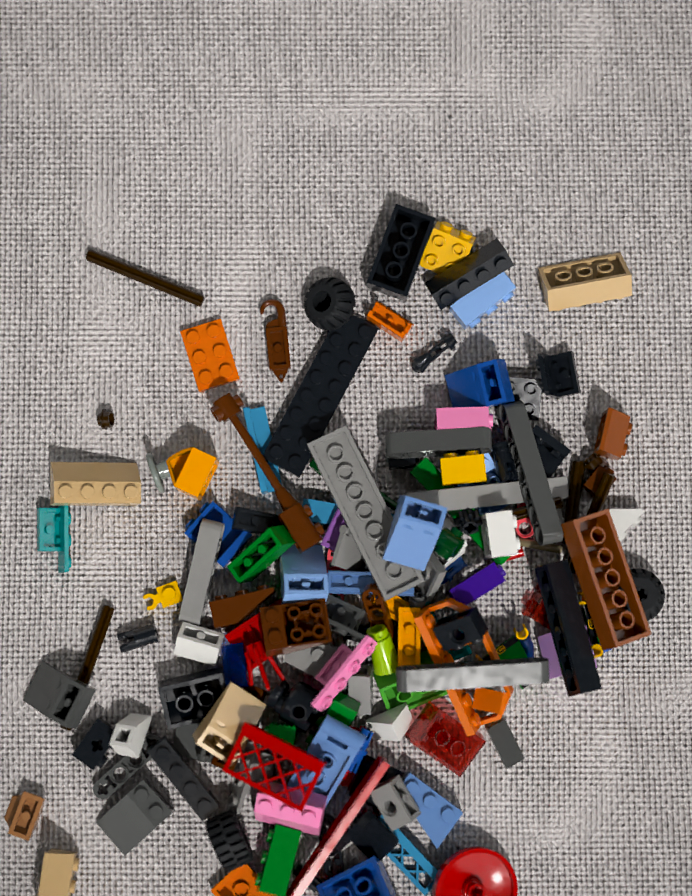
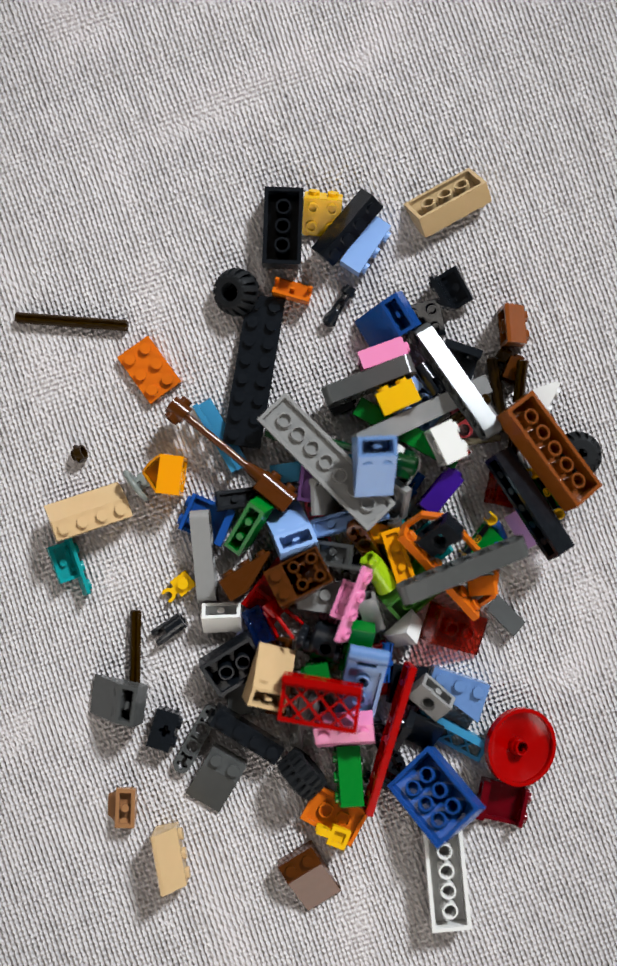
camera: 20 degrees left, 5 degrees up
(130, 734) = (189, 712): white slope -> none
(277, 340) = (202, 338): reddish brown plate -> none
(468, 521) = (416, 440): black gear -> none

